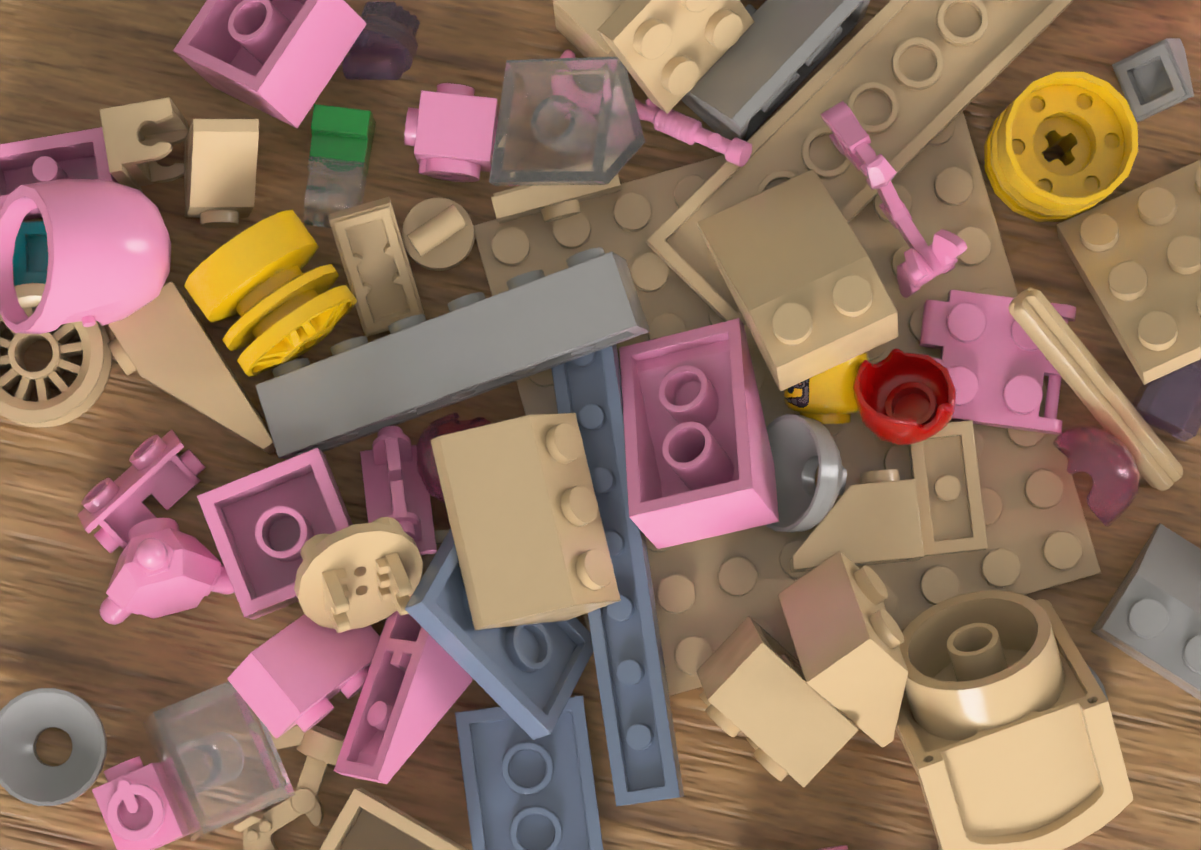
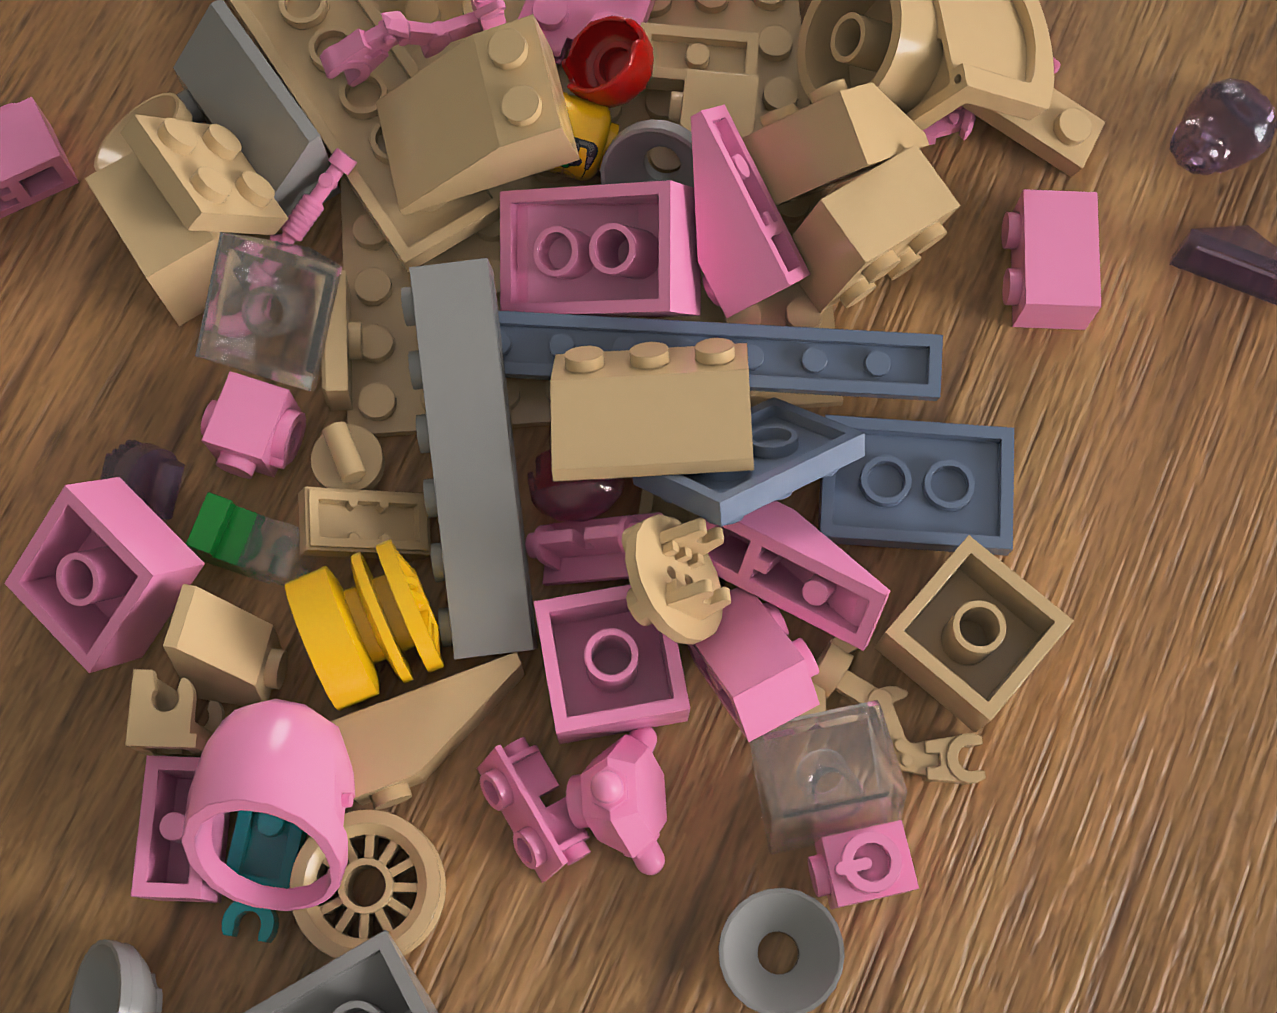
camera: 85 degrees left, 10 degrees down
(744, 567) = (738, 226): none -> bright pink slope

